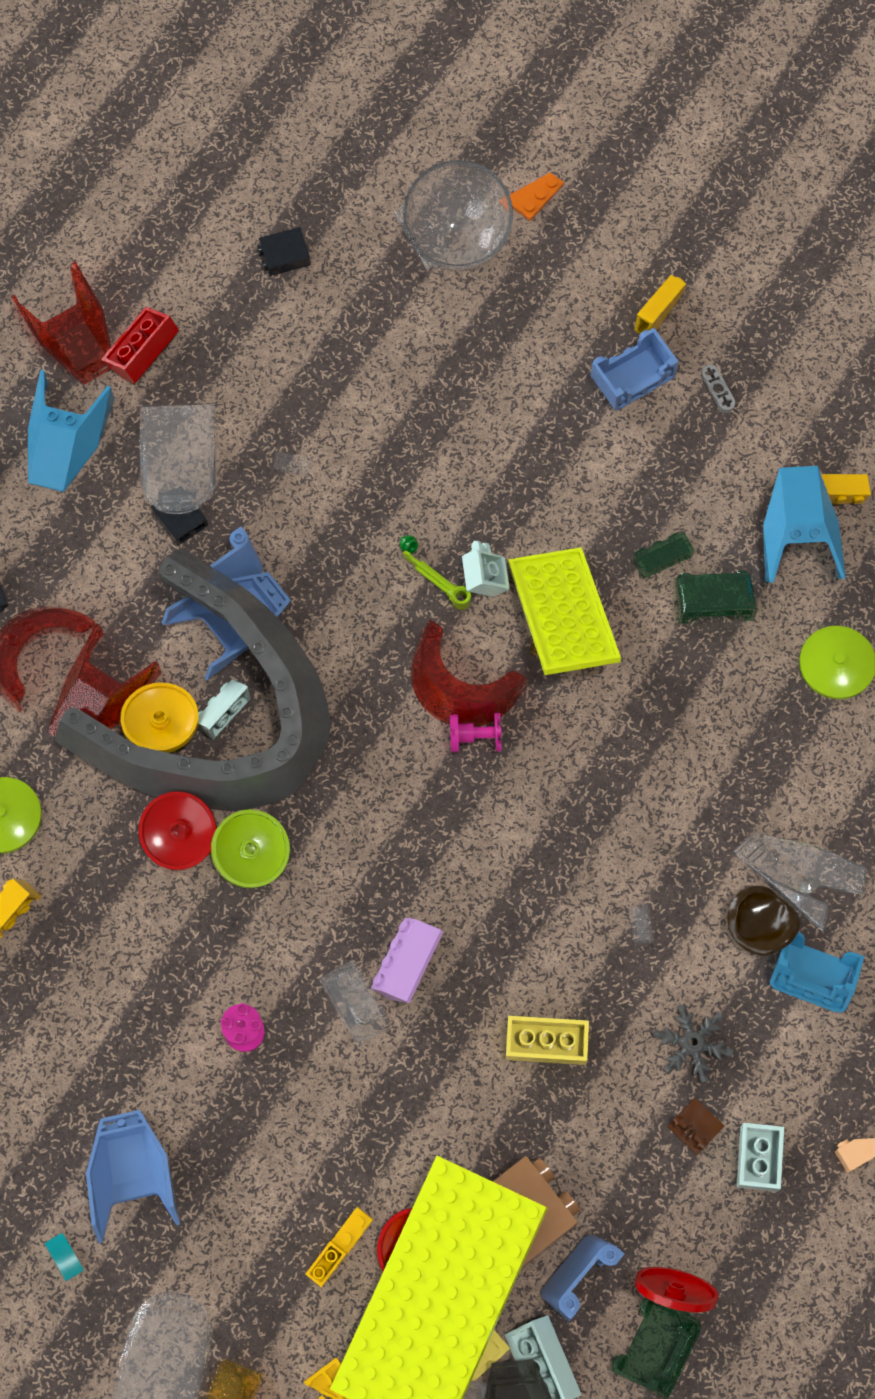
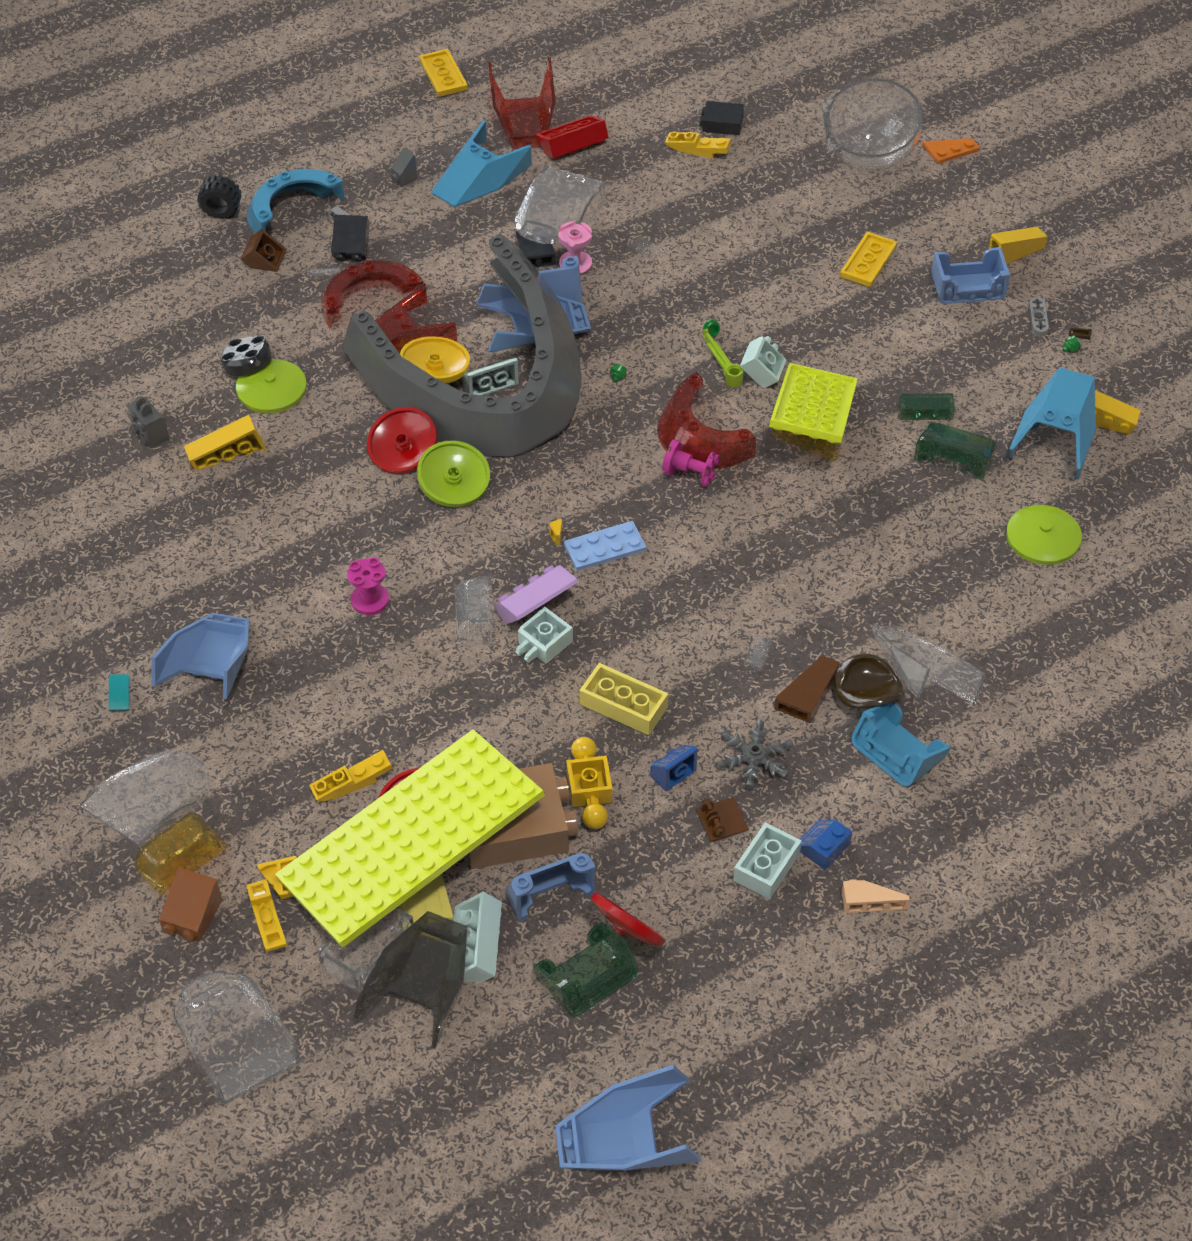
camera: 25 degrees right, 20 degrees down
(226, 506) = (575, 238): none -> bright pink piece
(276, 301) = (693, 144): none -> yellow slope
(344, 643) = (618, 372): none -> green plate
(384, 871) = (555, 530): none -> yellow slope
(437, 863) = (604, 545): none -> light blue plate
(441, 1014) = (544, 636): none -> light aqua hinge
(521, 384) = (868, 259): none -> yellow plate
(583, 1180) = (589, 782): none -> yellow brick
(628, 1093) = (674, 767): none -> blue slope
(708, 949) = (808, 690): none -> reddish brown slope
(765, 413) = (1071, 344): none -> green plate
(766, 392) = (1081, 333): none -> dark brown piece
(796, 1109) = (825, 842): none -> blue slope

